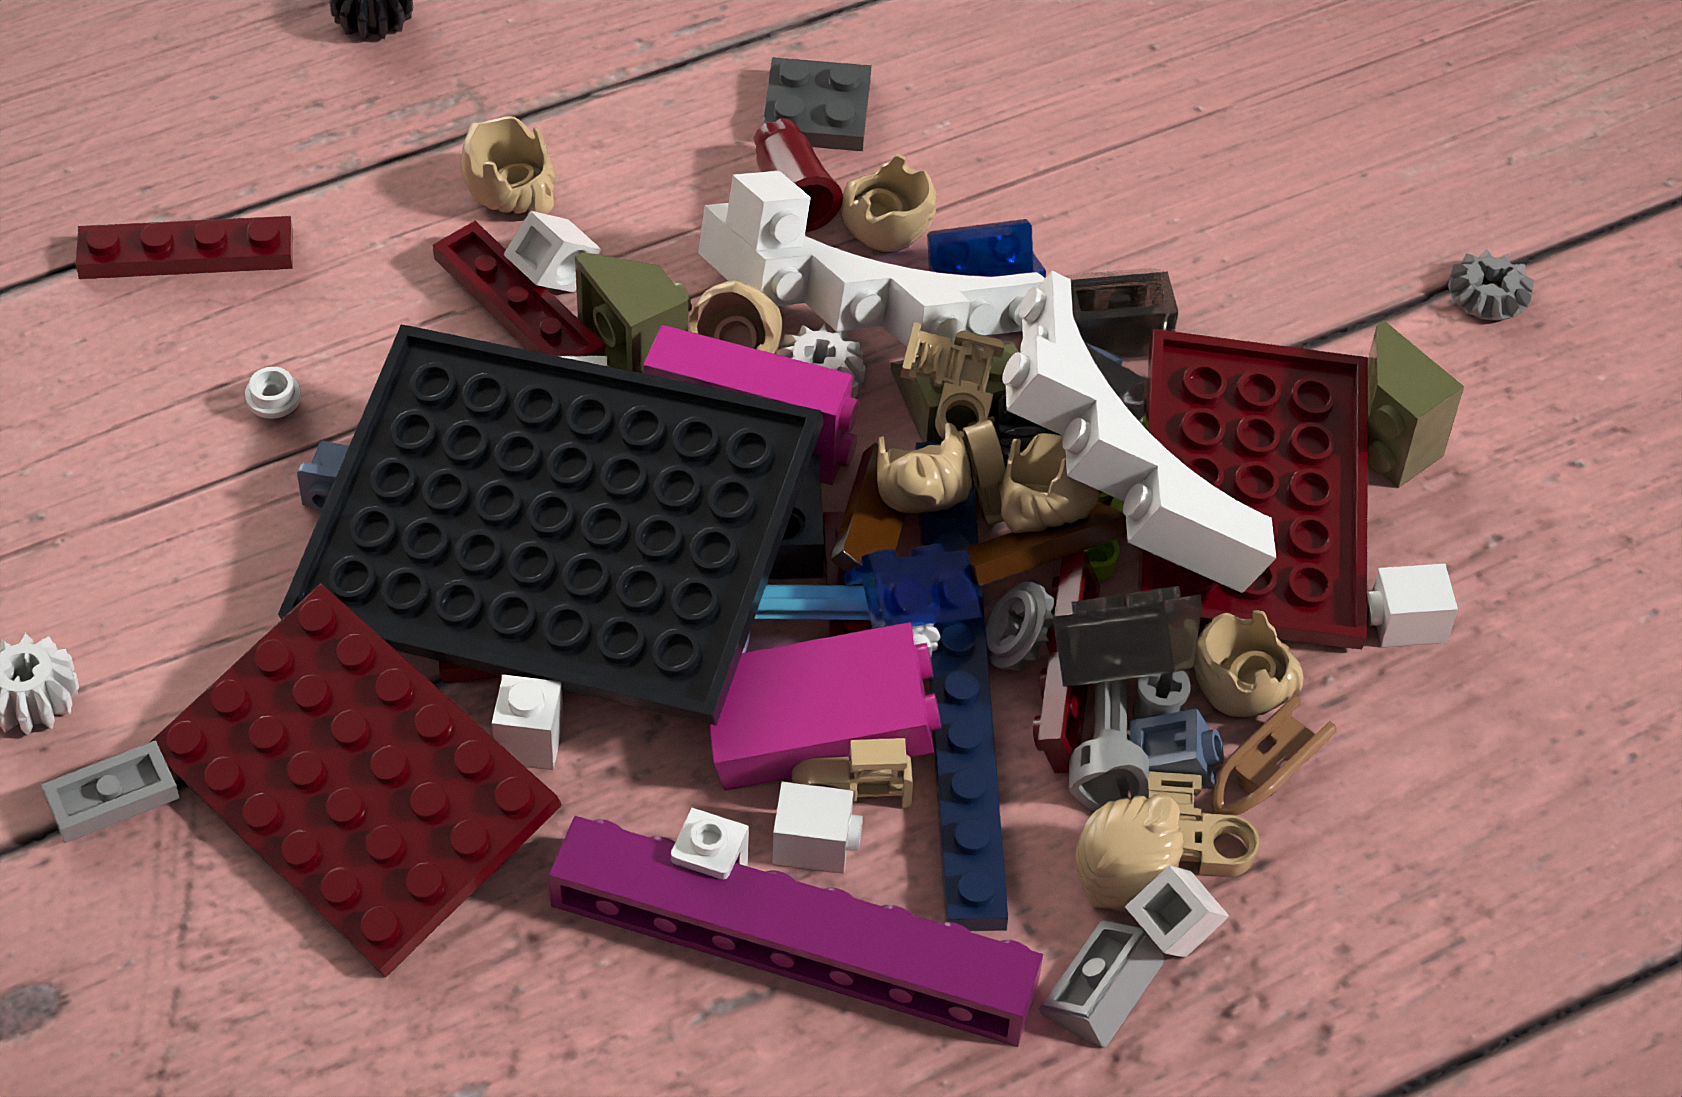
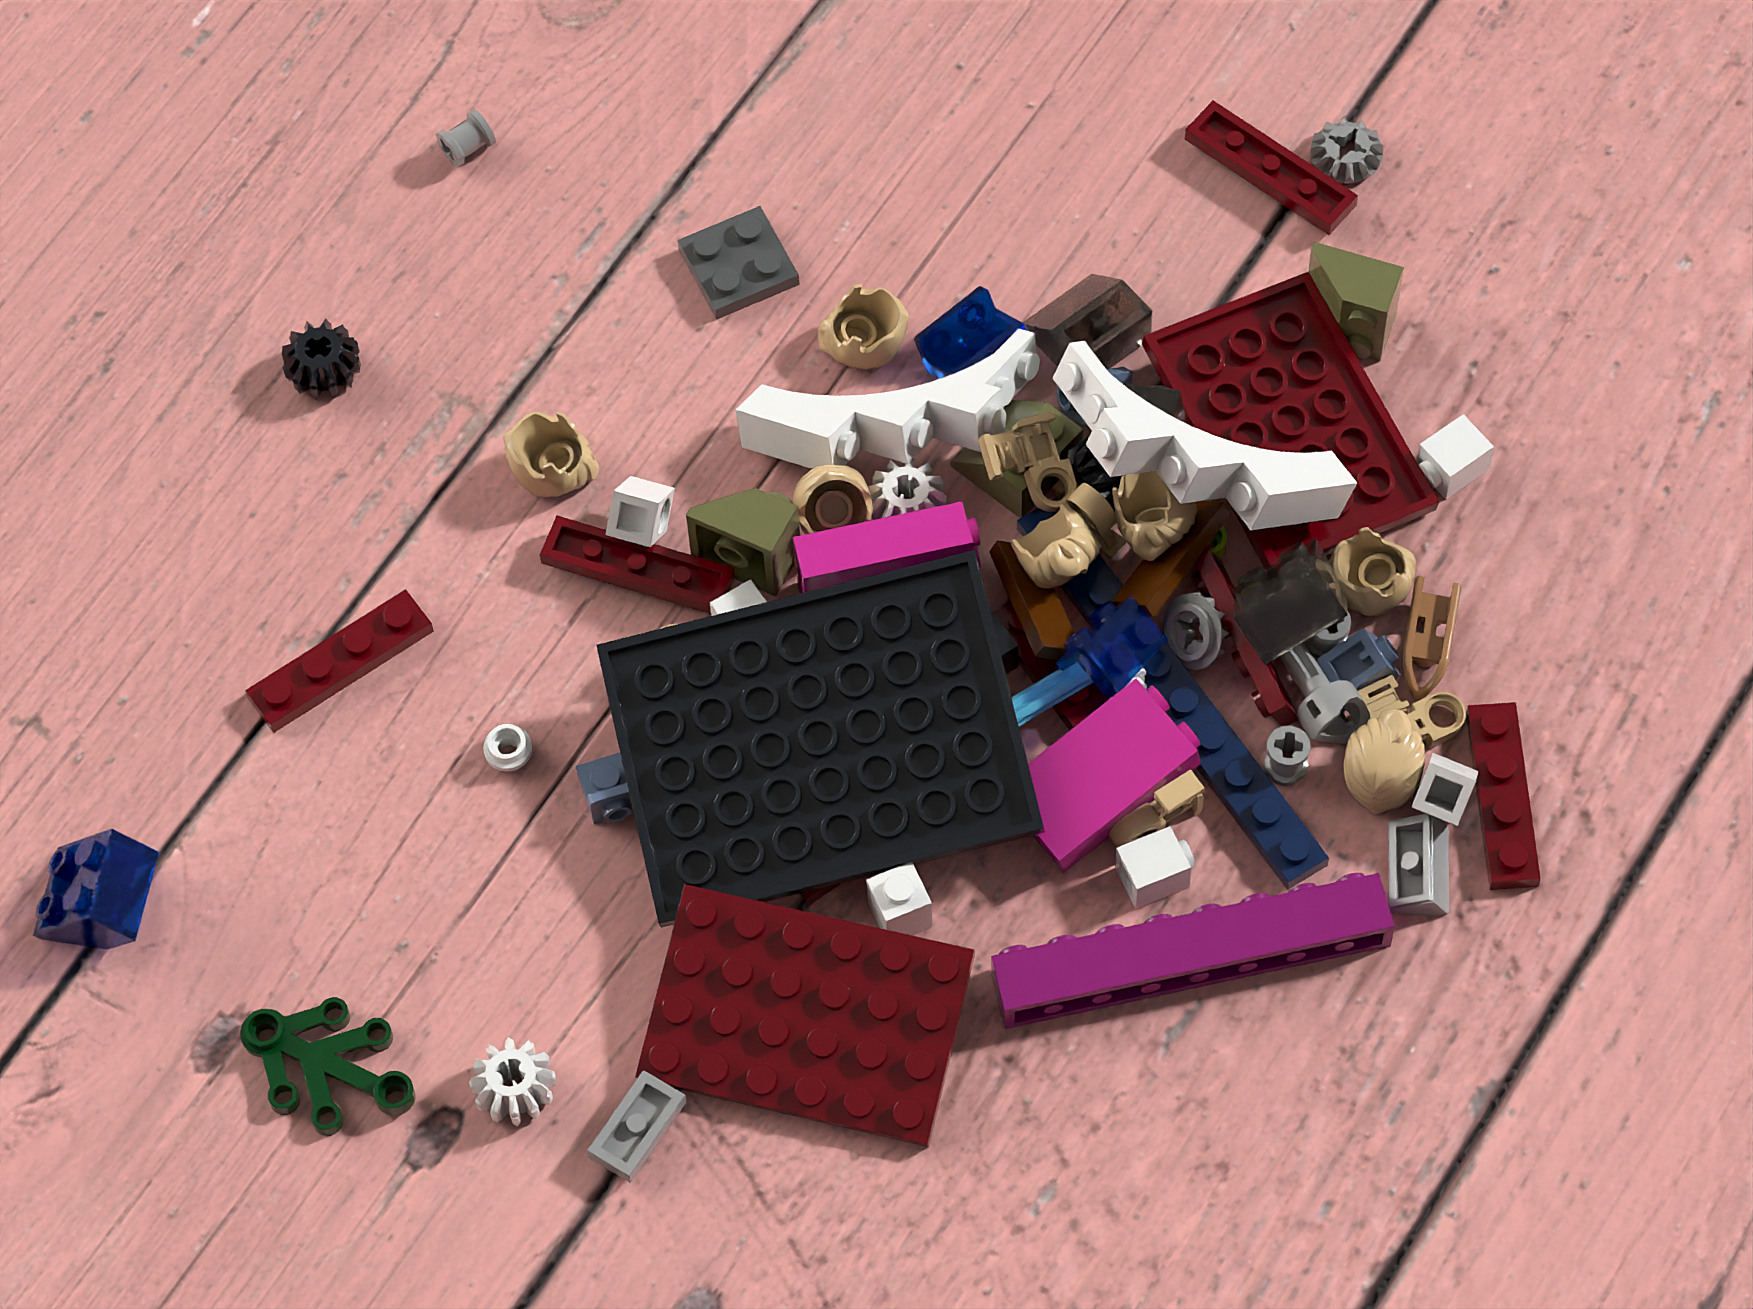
camera: 25 degrees left, 10 degrees up
(711, 844) = (1099, 923): white bracket -> none
(768, 210) = (801, 394): white brick -> none
(787, 150) = (773, 340): dark red plant -> none
(1033, 794) = (1291, 741): none -> light grey bush
(1243, 961) = (1503, 796): none -> dark red plate
(1401, 263) = (1271, 167): none -> dark red plate

